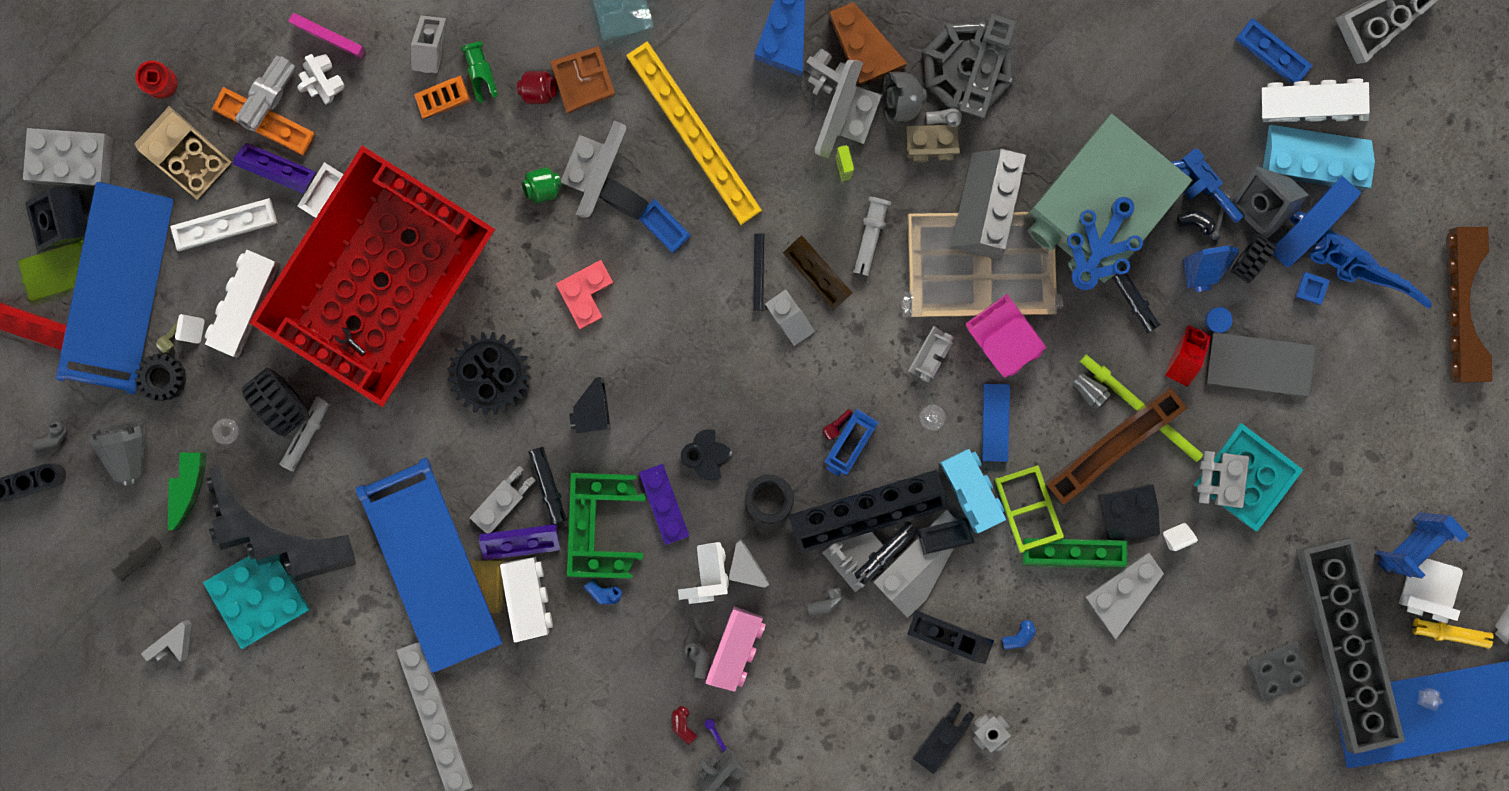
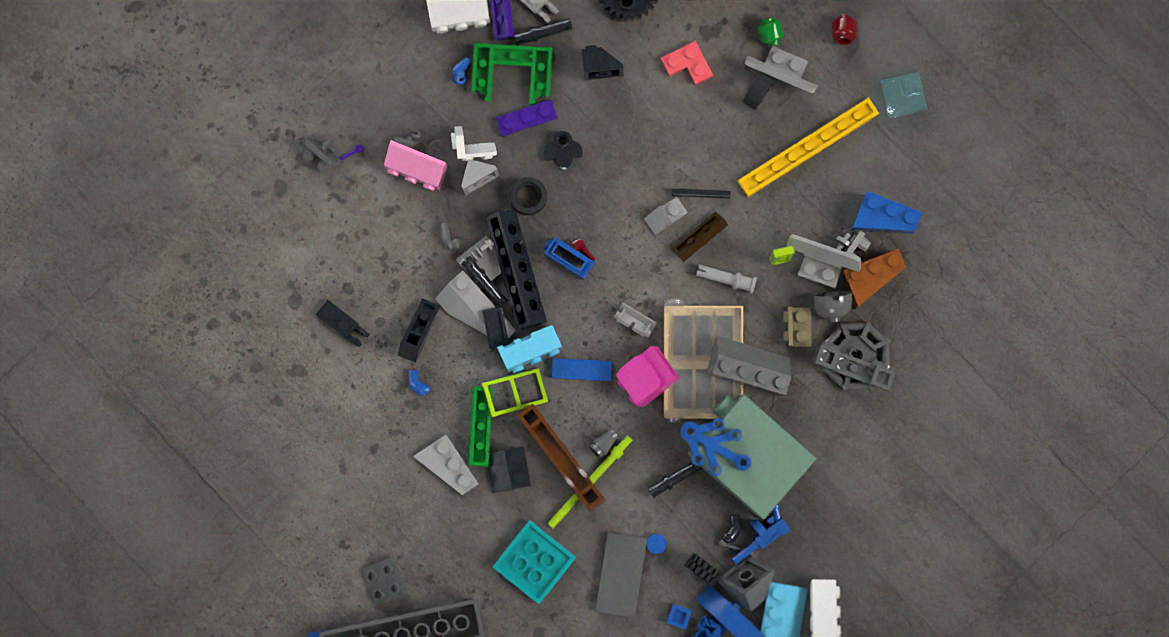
camera: 90 degrees right, 5 degrees down
(582, 79) = (850, 64): dark orange plate -> none
(664, 226) = (737, 123): blue tile -> none
(679, 725) = (359, 125): dark red arm -> none
(932, 417) = (587, 321): clear tile -> none
(950, 116) = (817, 339): light grey arm -> none
(984, 725) = (349, 364): light grey brick -> none
(1179, 537) = (489, 507): white slope -> none
(1188, 356) = (629, 518): red slope -> none
(1208, 266) = (697, 534): blue wedge -> none
(1231, 479) = (533, 547): light grey plate -> none
(1273, 52) = (864, 593): blue tile -> none

